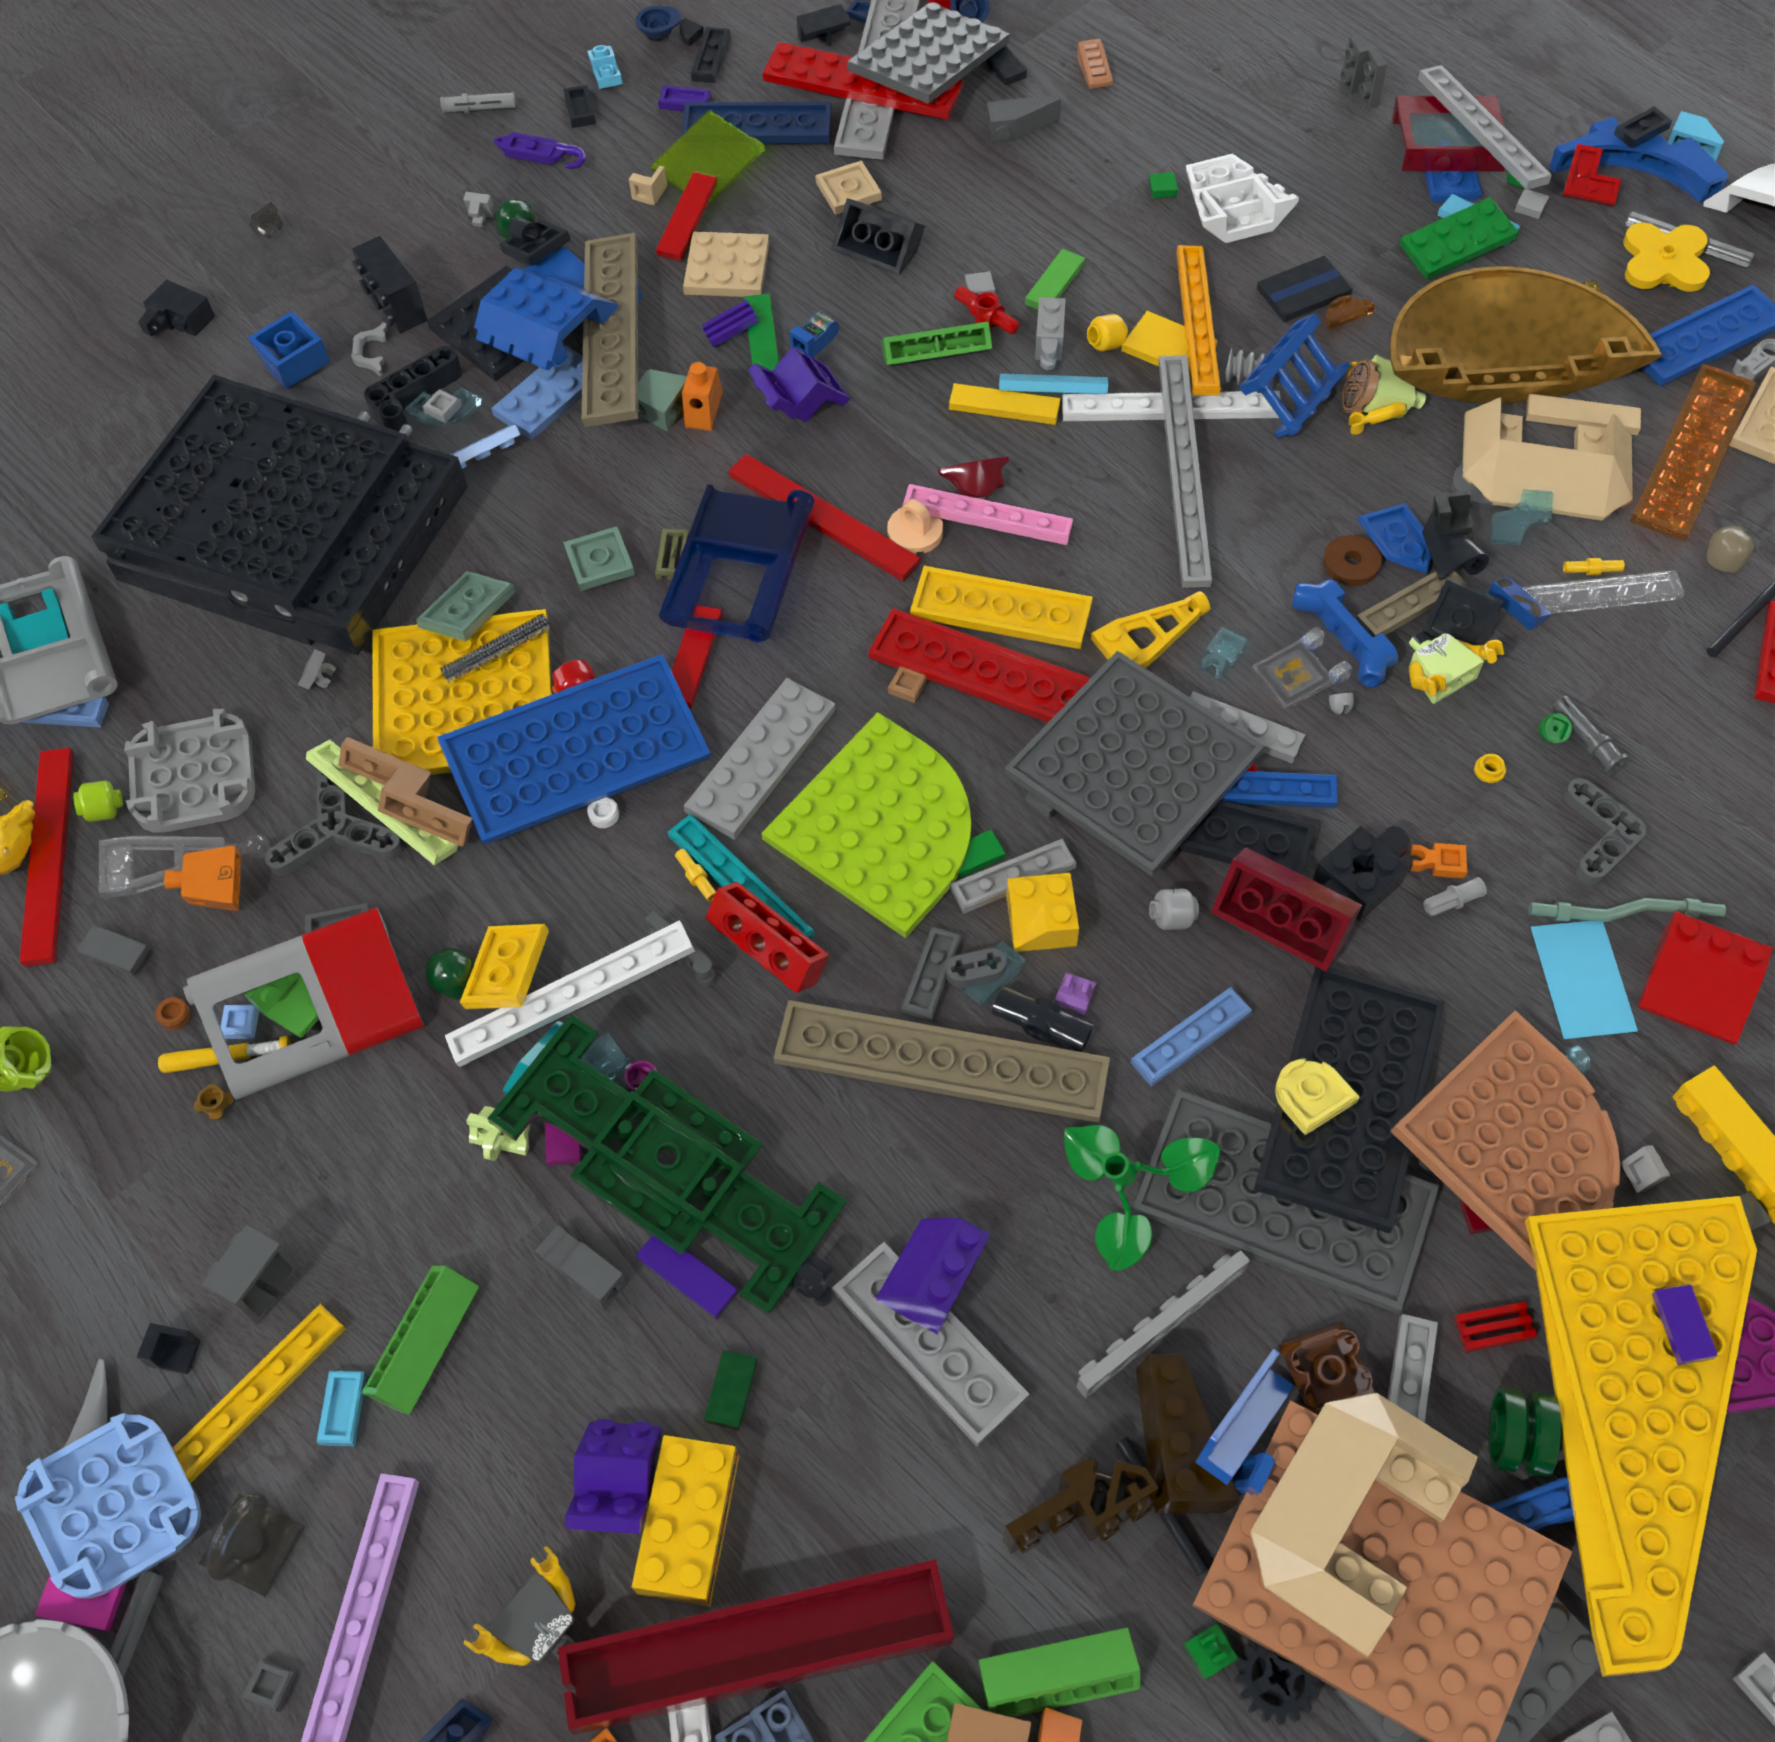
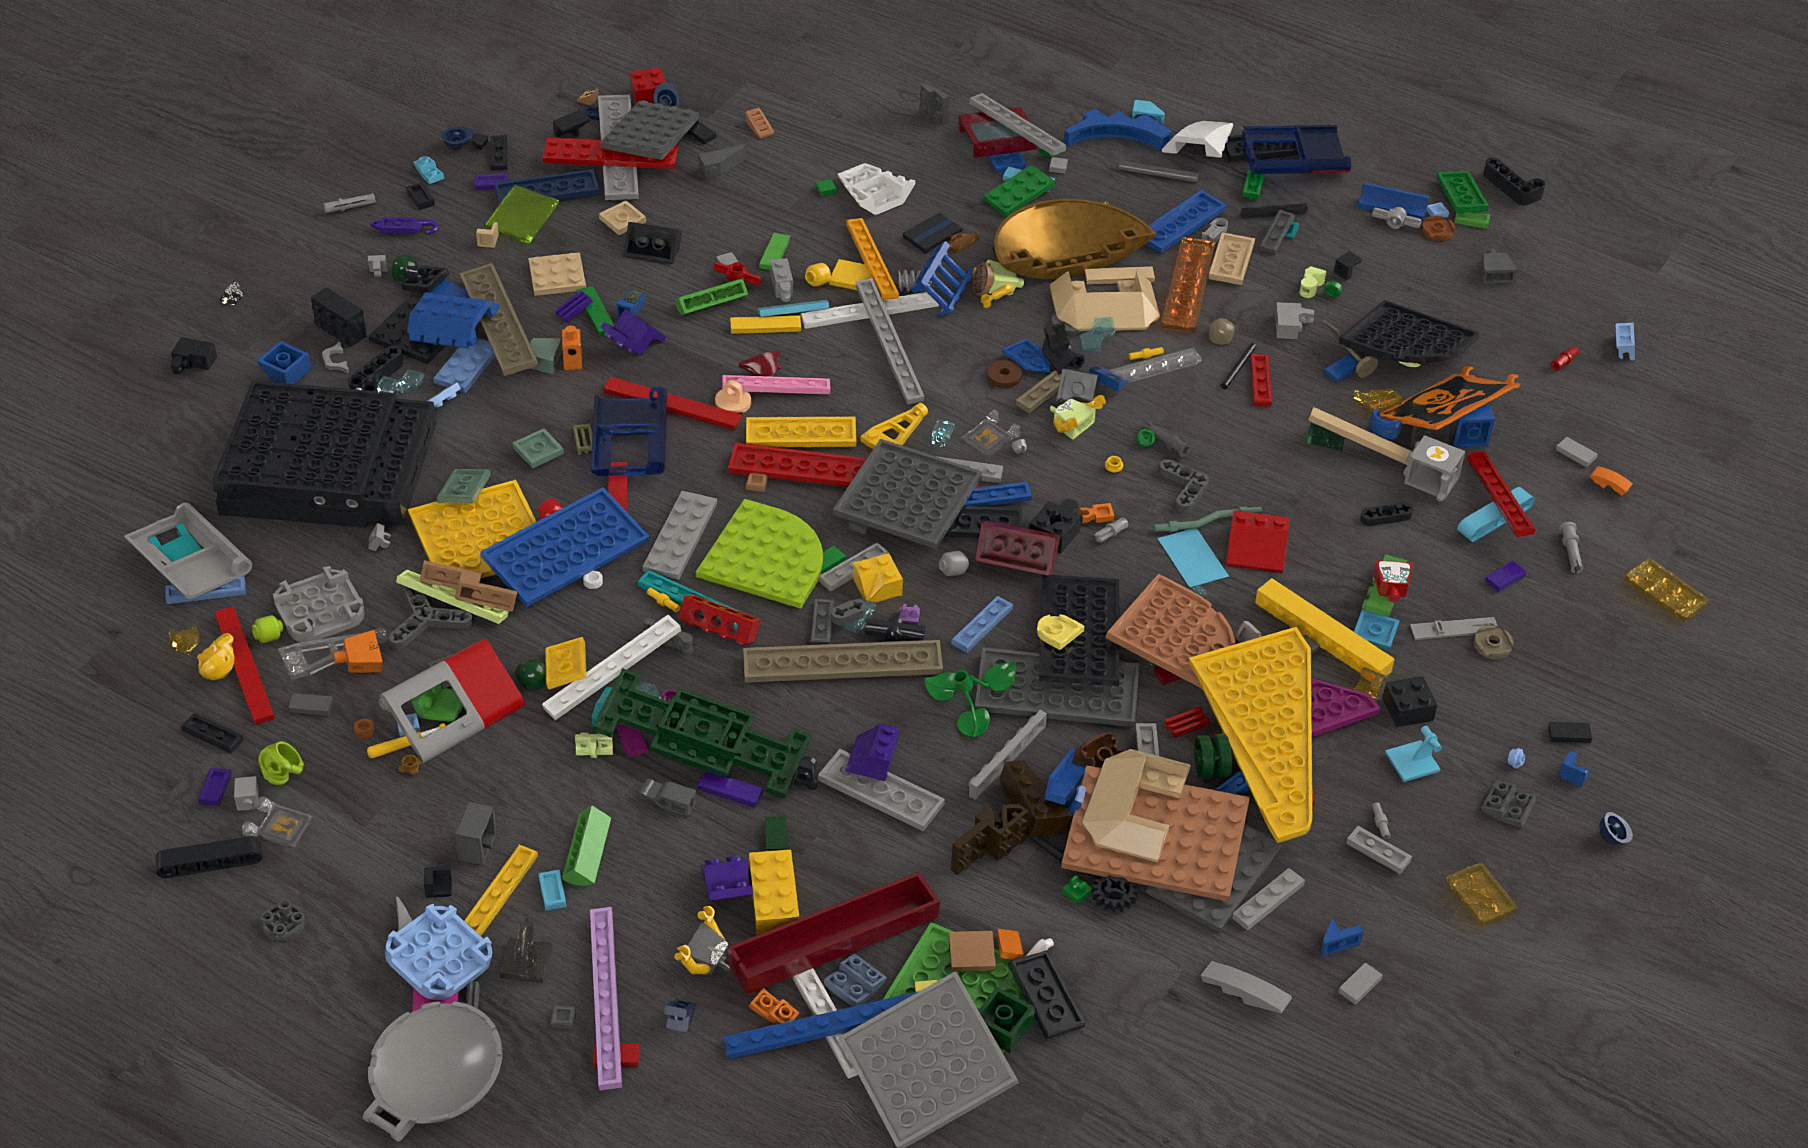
camera: 20 degrees left, 15 degrees down
(442, 406) = (401, 381): light grey tile -> none
(494, 646) = (493, 504): black axle -> none
(686, 216) = (521, 249): red tile -> none
(1060, 1674) = (1003, 912): bright green brick -> none
(1326, 602) = (995, 396): blue plate -> none
(1584, 182) = (1087, 148): red tile -> none
(1642, 127) = (1114, 111): black plate -> none
(1666, 257) = (1146, 182): yellow plant -> none
(1684, 1324) = (1280, 685): dark purple tile -> none

